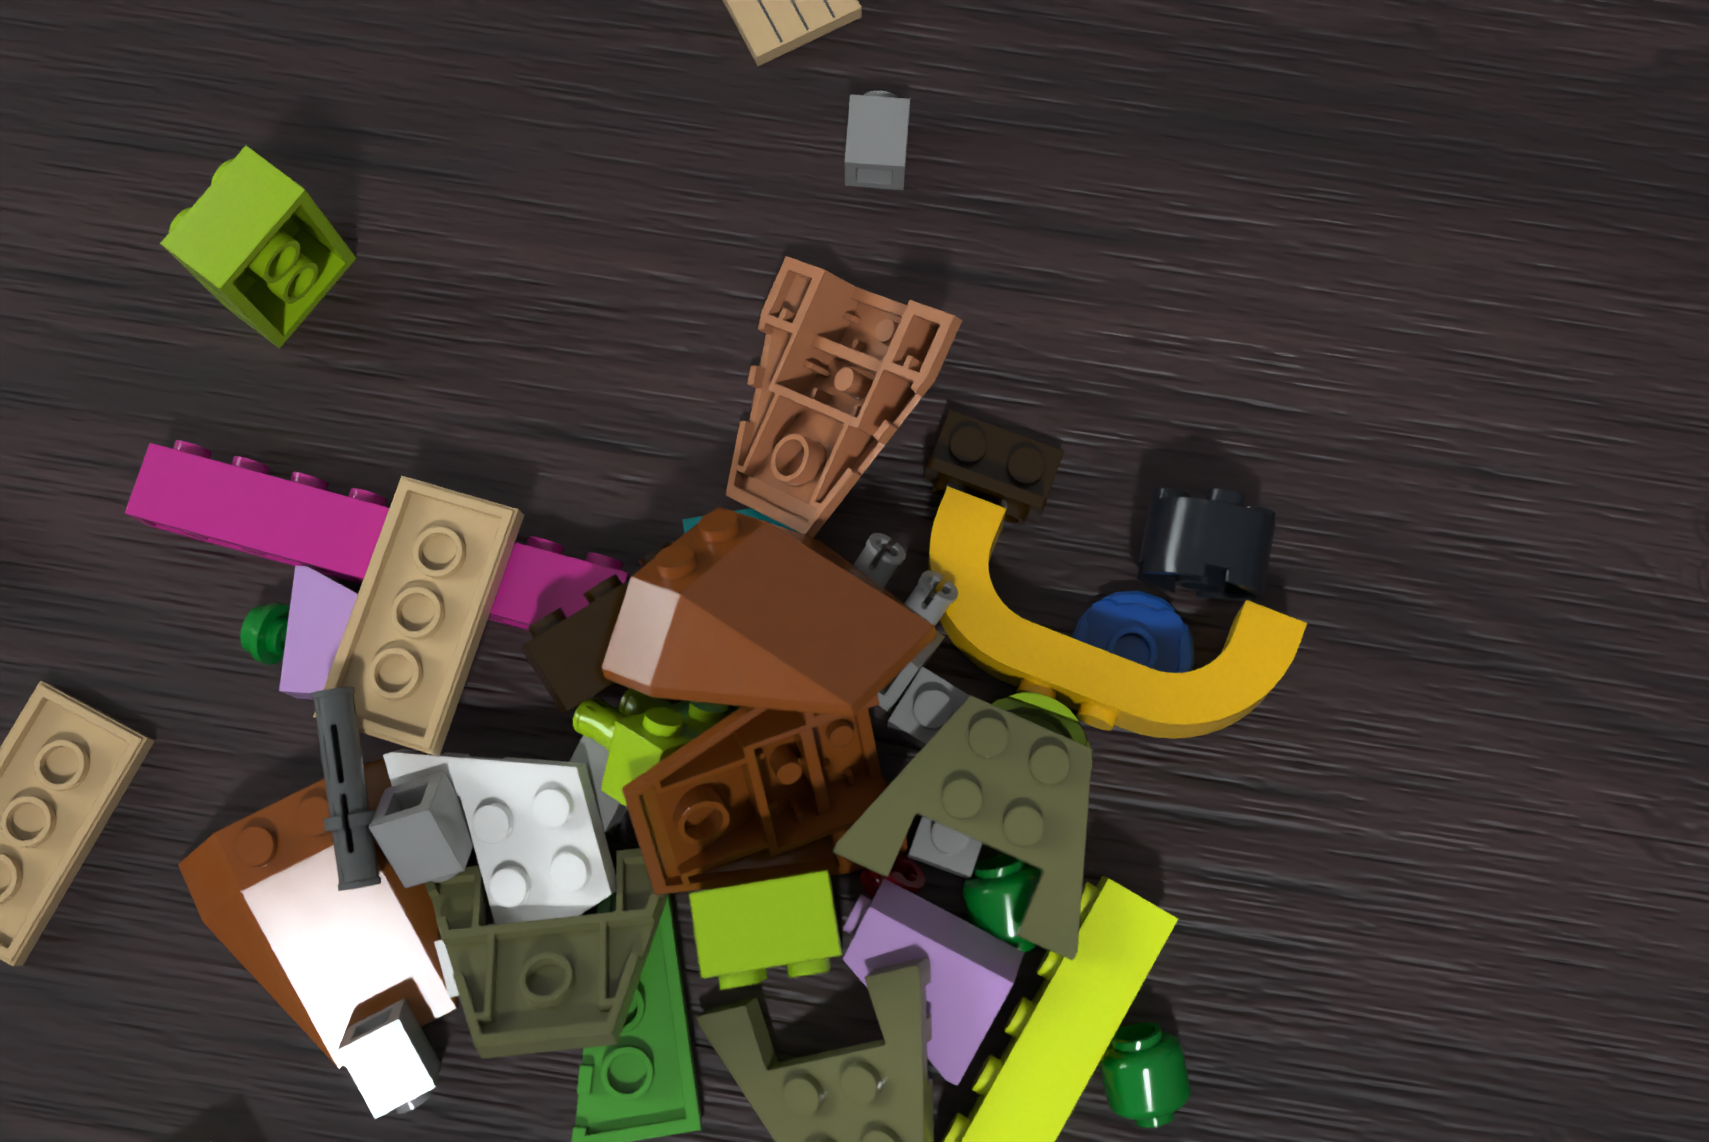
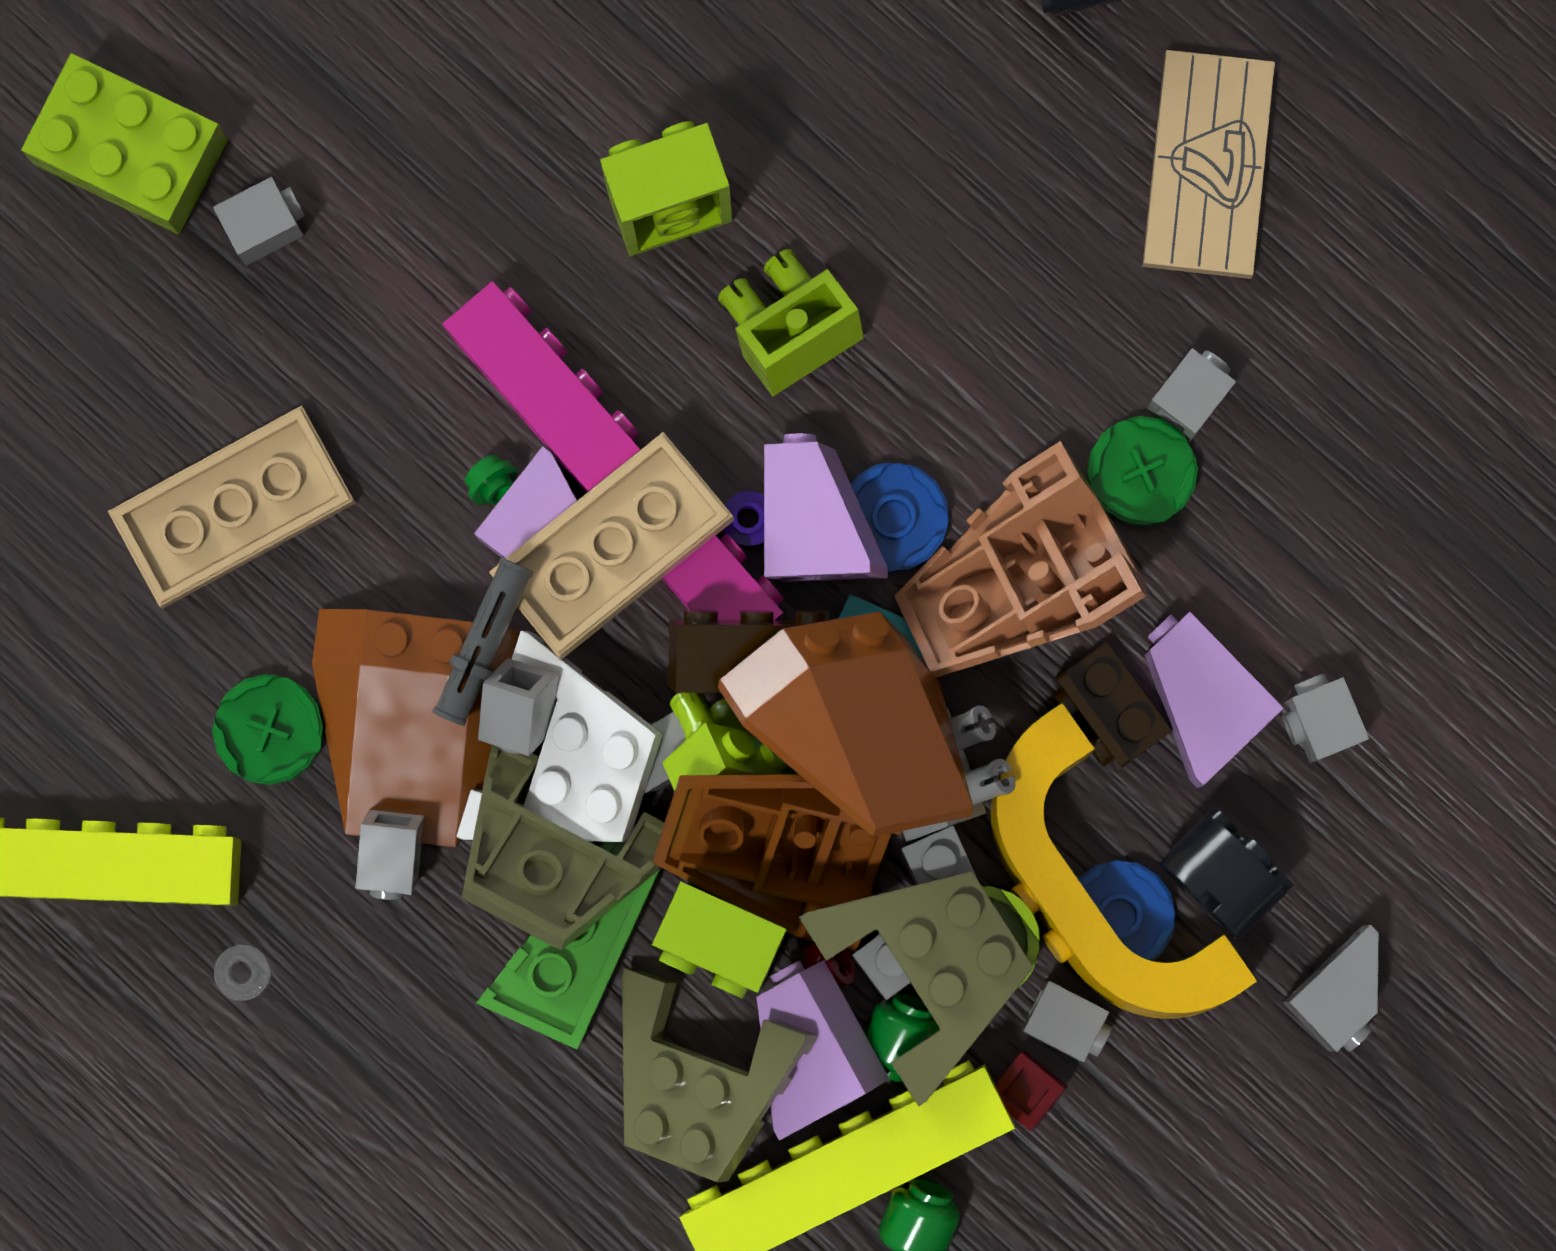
camera: 35 degrees right, 5 degrees up
(198, 1016) = (268, 730): none -> green tile
(475, 308) = (798, 330): none -> lime brick
(559, 519) = (746, 536): none -> dark purple plate
(601, 469) = (814, 517): none -> lavender slope
(678, 425) = (903, 513): none -> blue tile
(879, 239) = (1142, 471): none -> green tile
(1073, 398) = (1206, 696): none -> lavender slope
(1152, 783) = (1067, 1022): none -> light grey brick
(1161, 872) = (1029, 1090): none -> dark red plate
(1193, 348) = (1323, 718): none -> light grey brick
(1384, 586) = (1341, 993): none -> light grey slope

